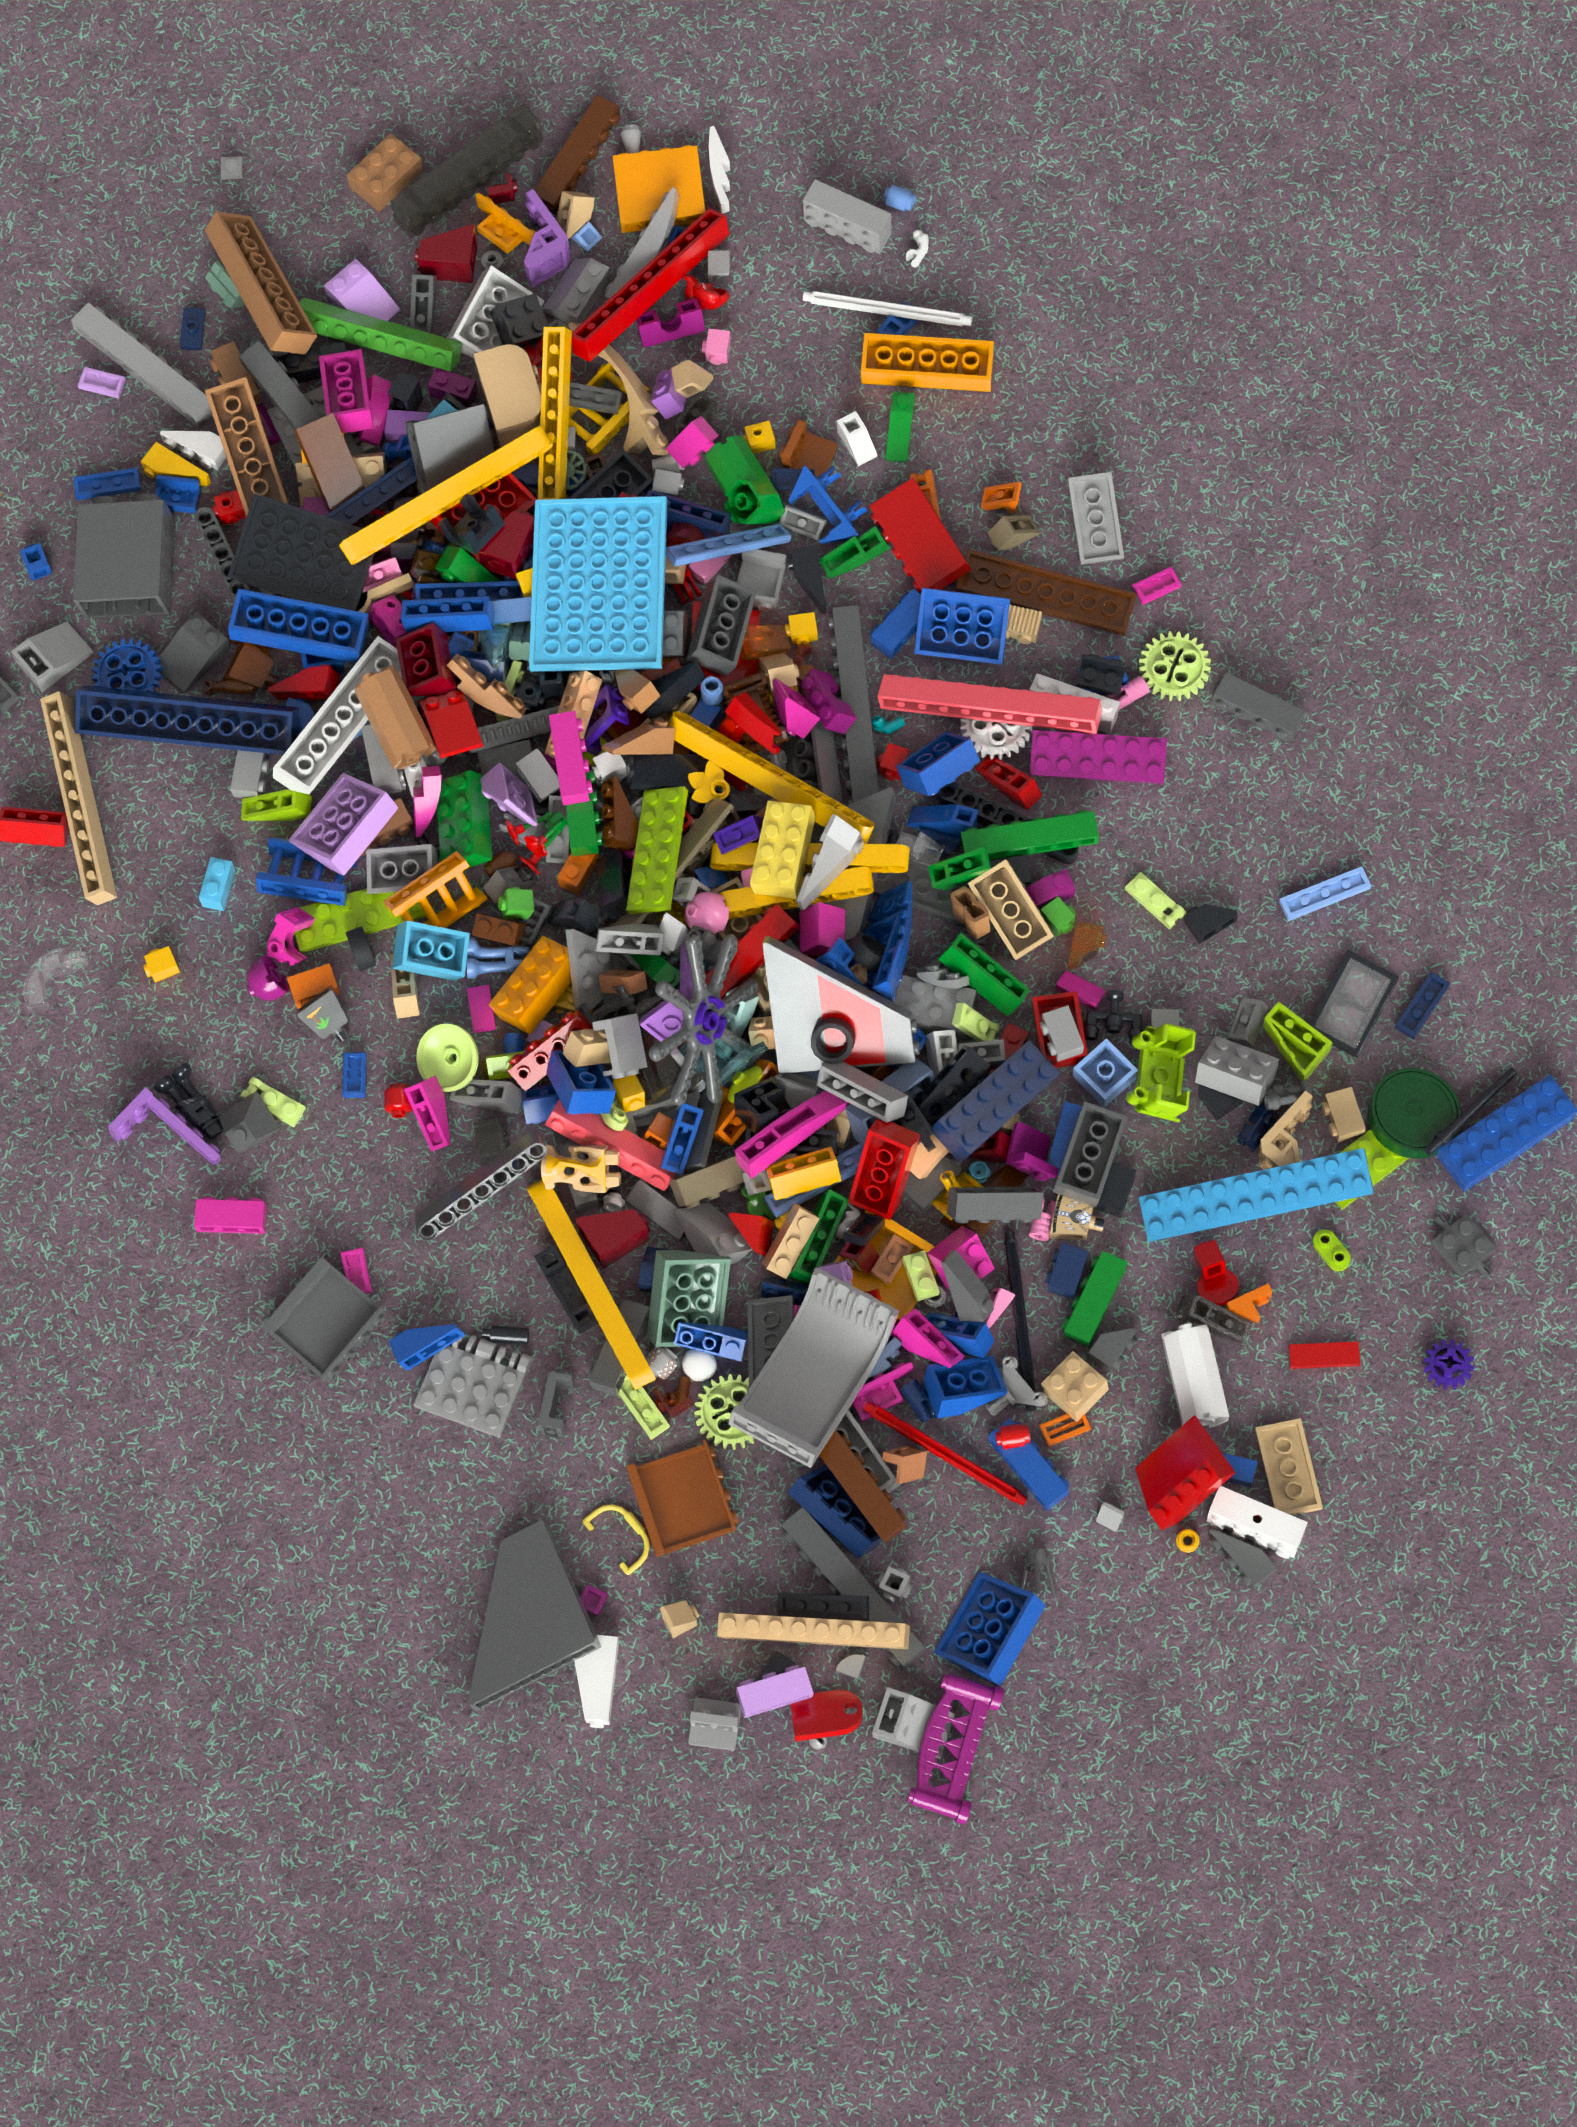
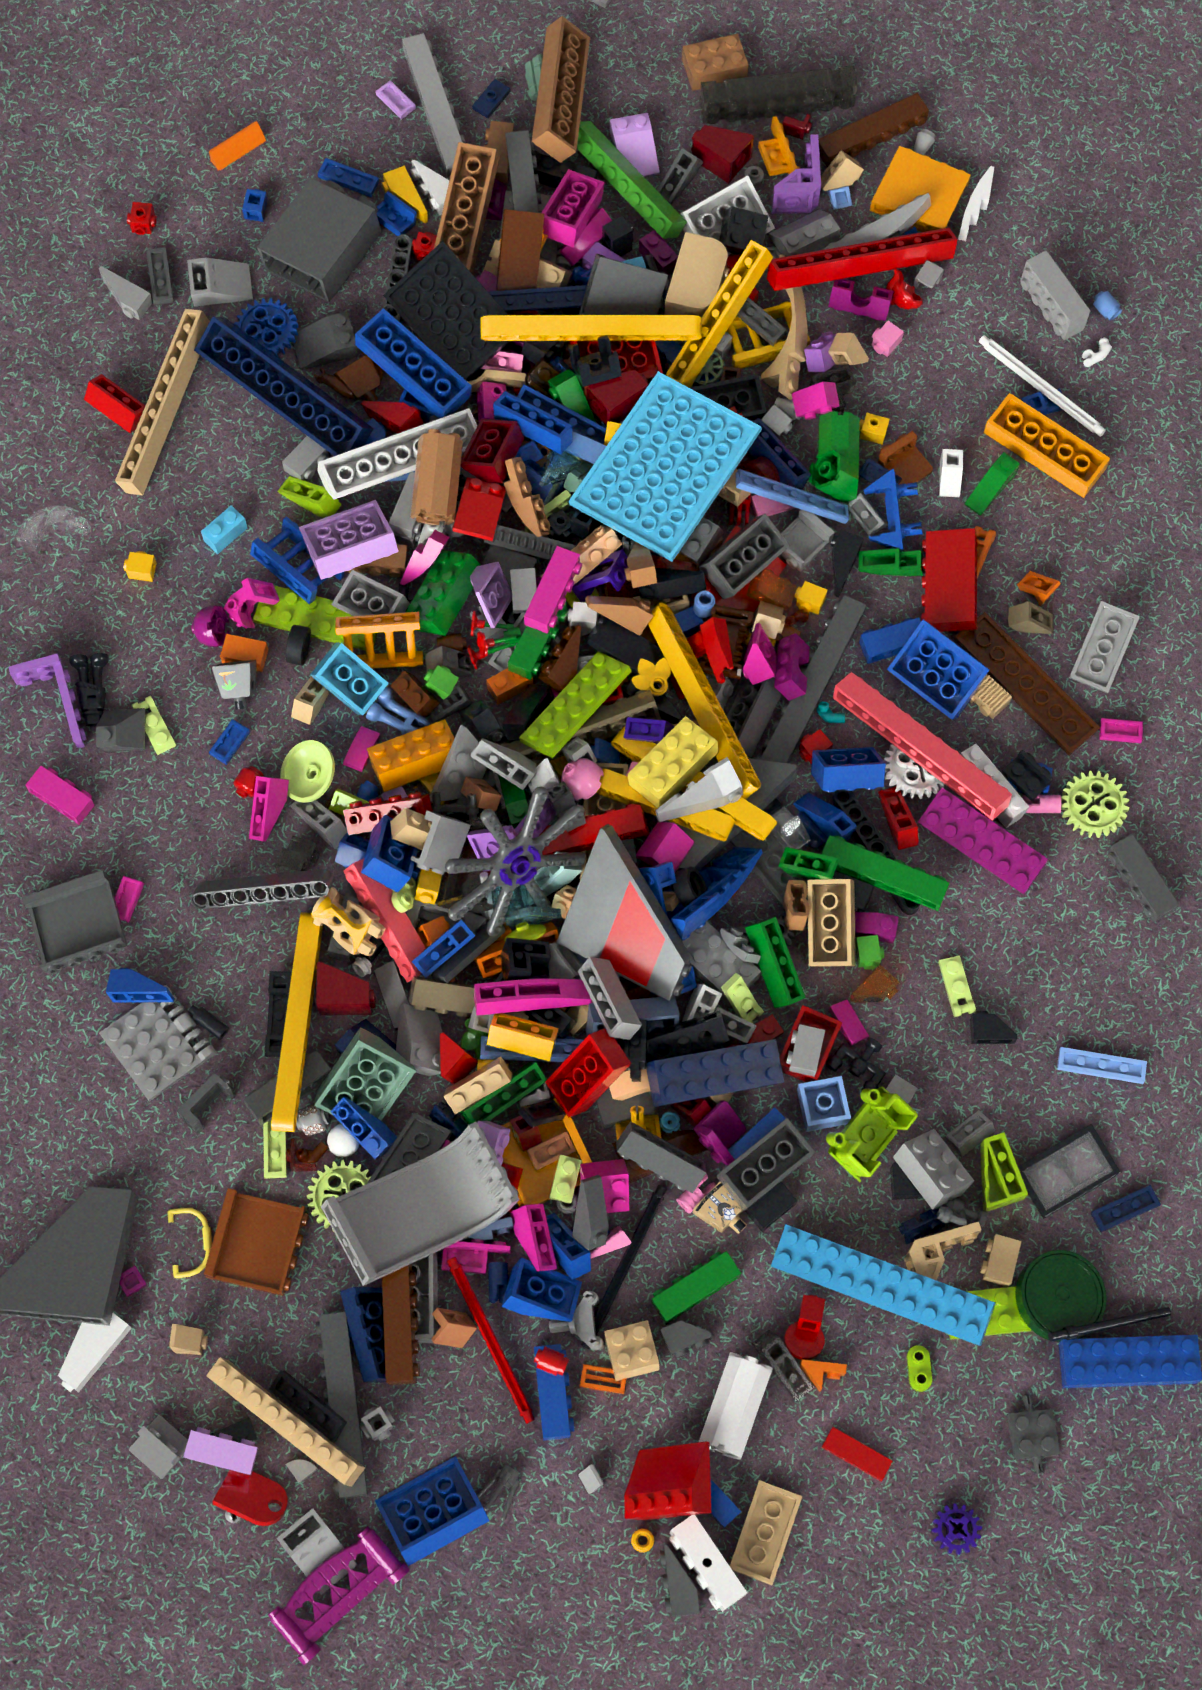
camera: 25 degrees right, 0 degrees up
(832, 1057) = (598, 949): black tyre -> none
(1067, 1270) = (687, 1249): dark blue brick -> none

